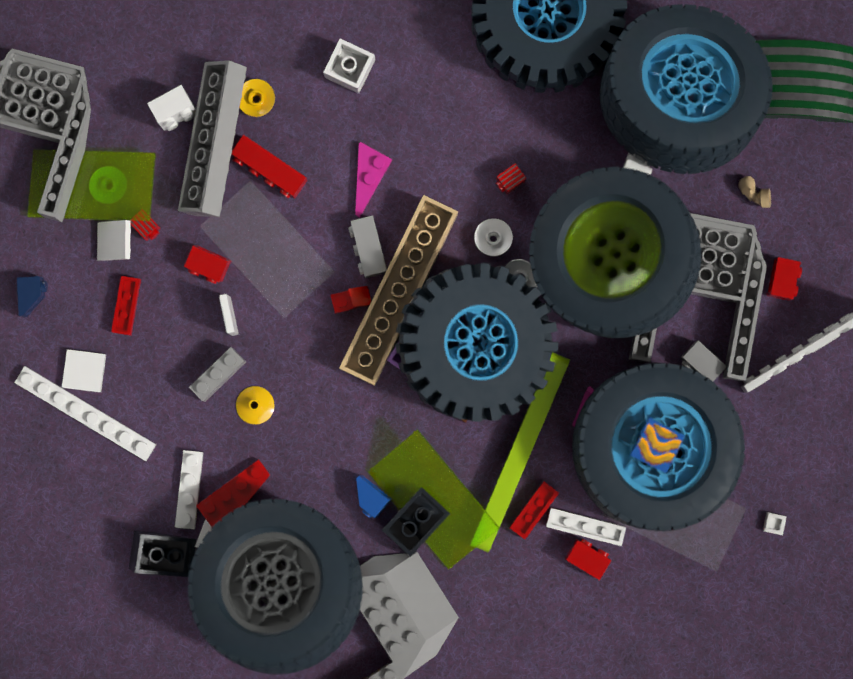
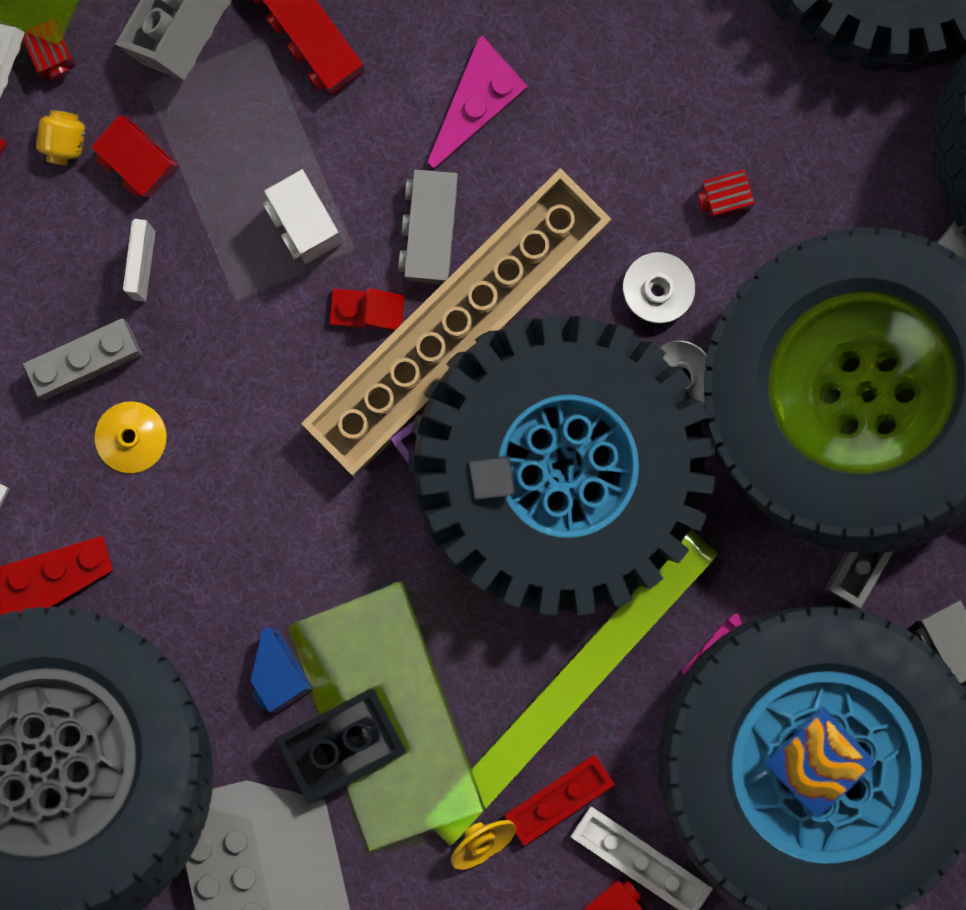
camera: 20 degrees right, 0 degrees up
(166, 266) = (60, 137): none -> yellow head
(305, 265) = (304, 217): none -> white brick
(445, 361) = (492, 477): none -> black slope
(503, 545) = (482, 843): none -> yellow dish

